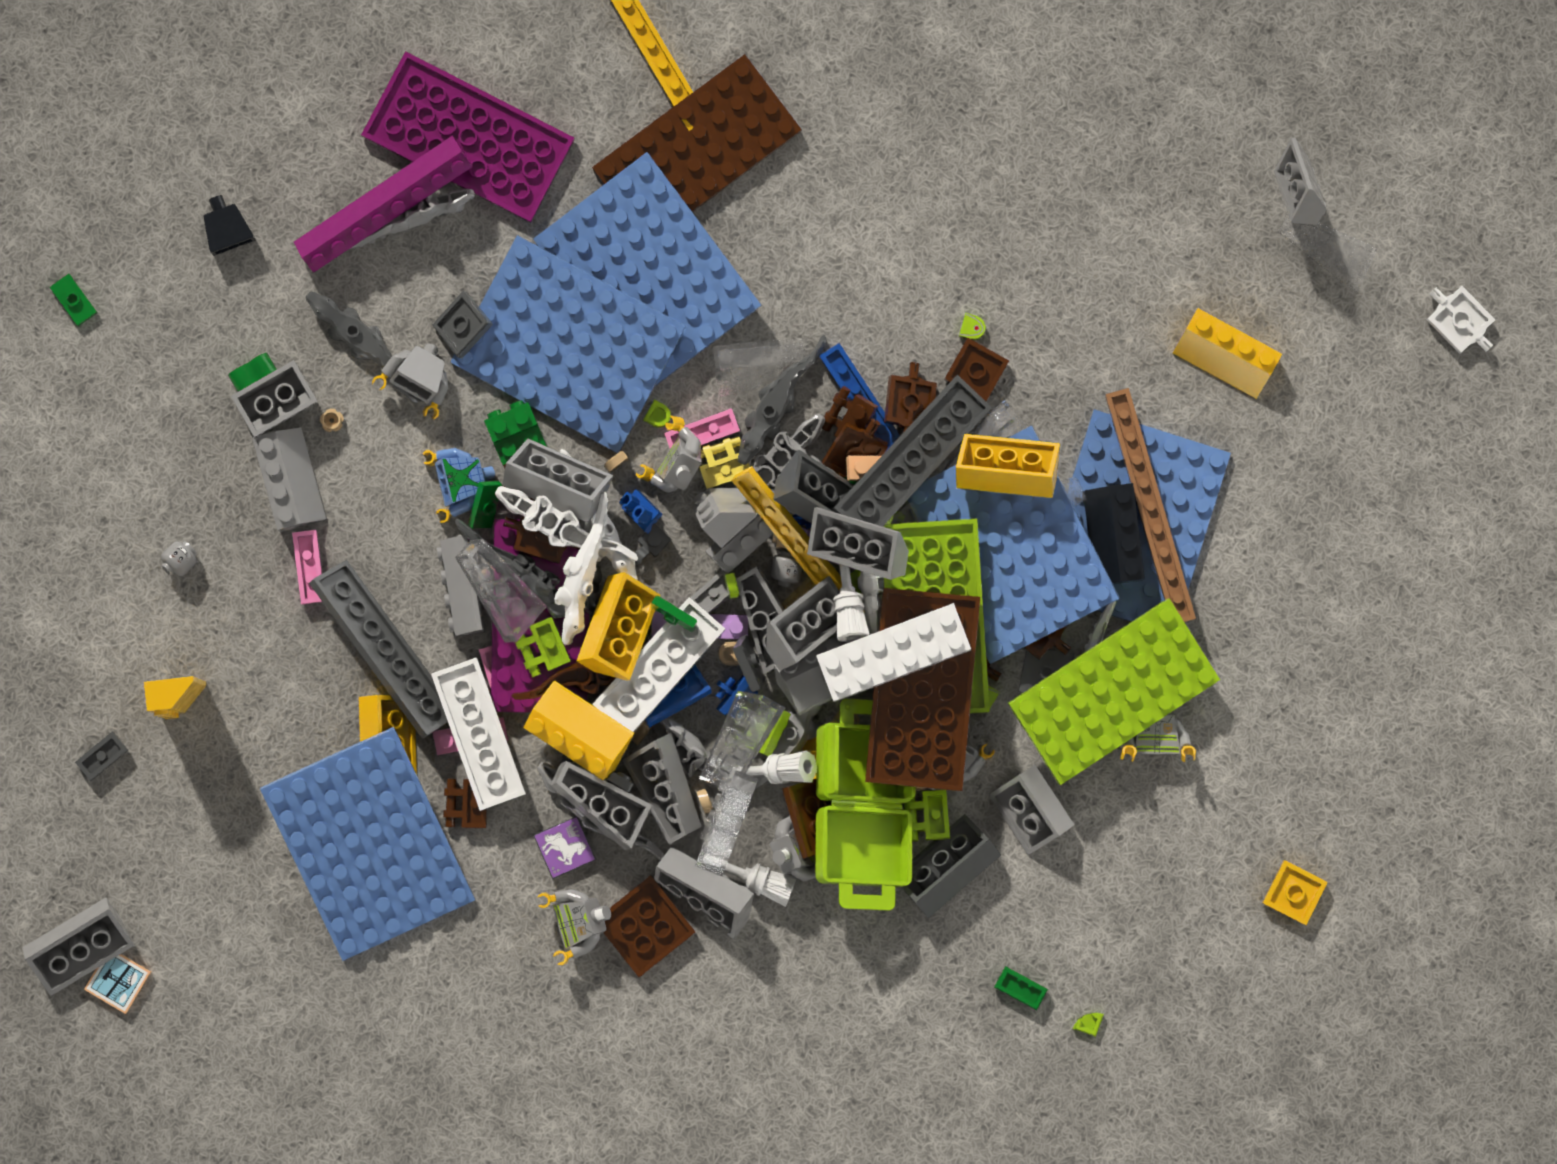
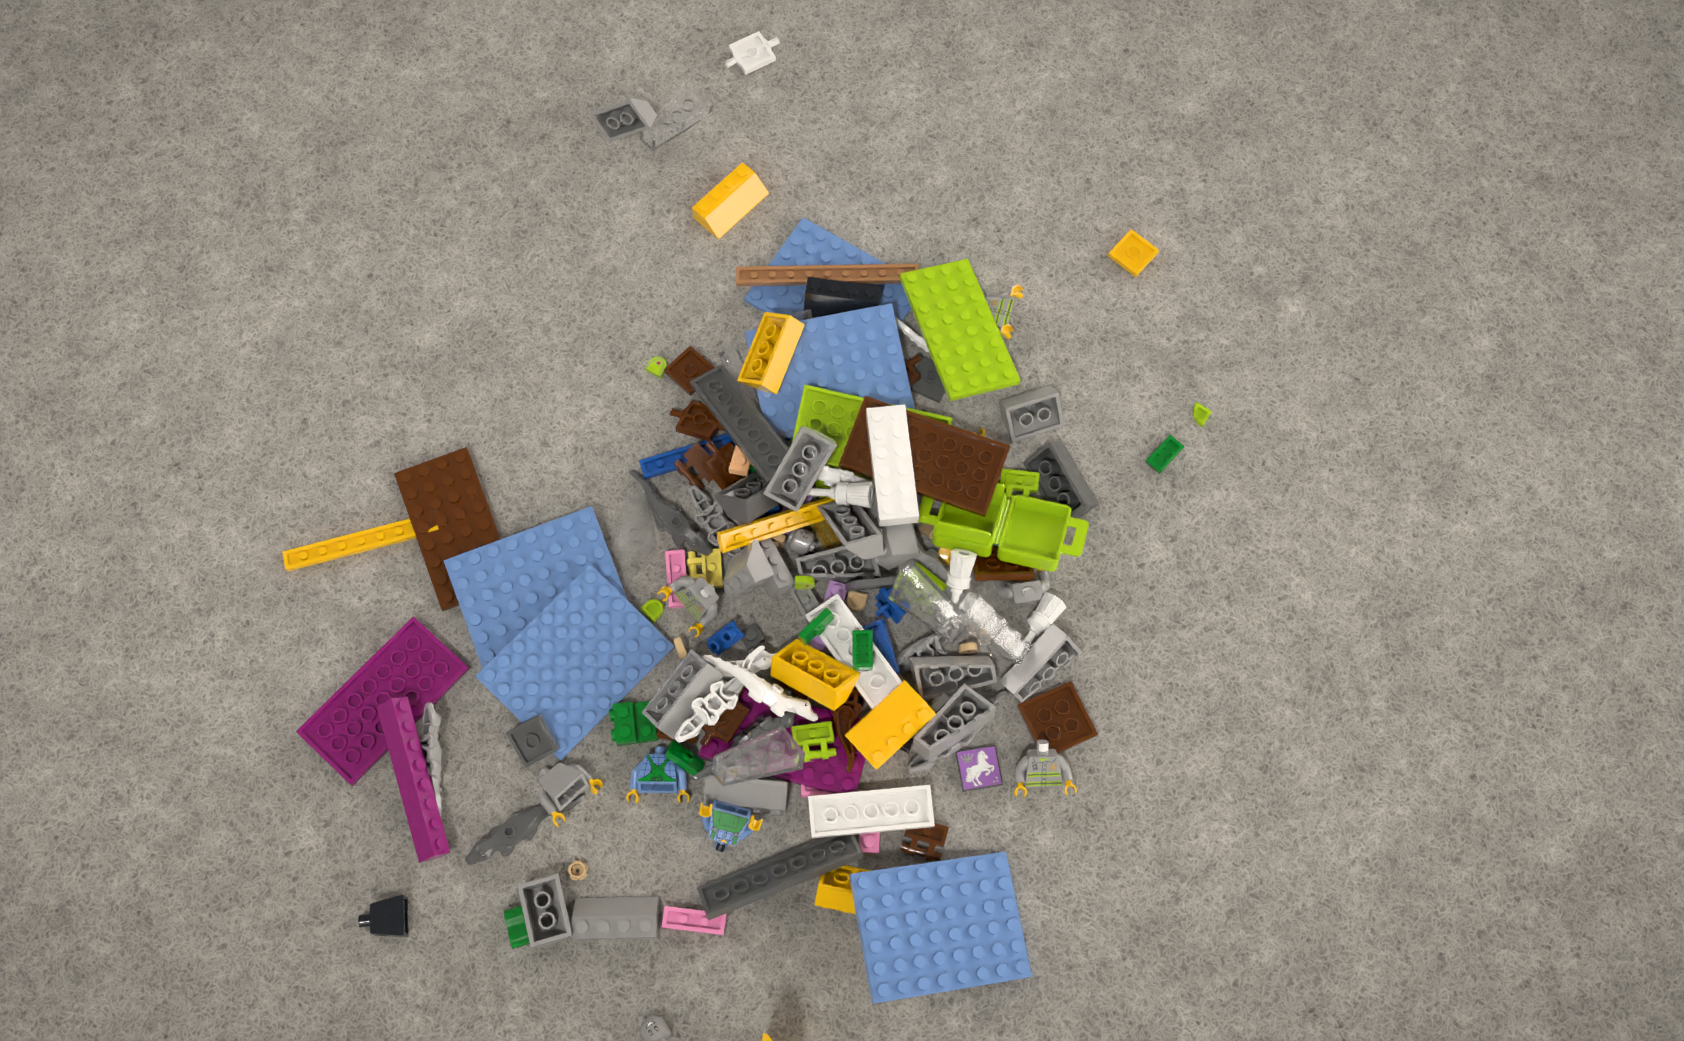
camera: 70 degrees left, 15 degrees down
(423, 574) = (727, 823): none -> torso
(658, 675) = (862, 649): none -> green plate

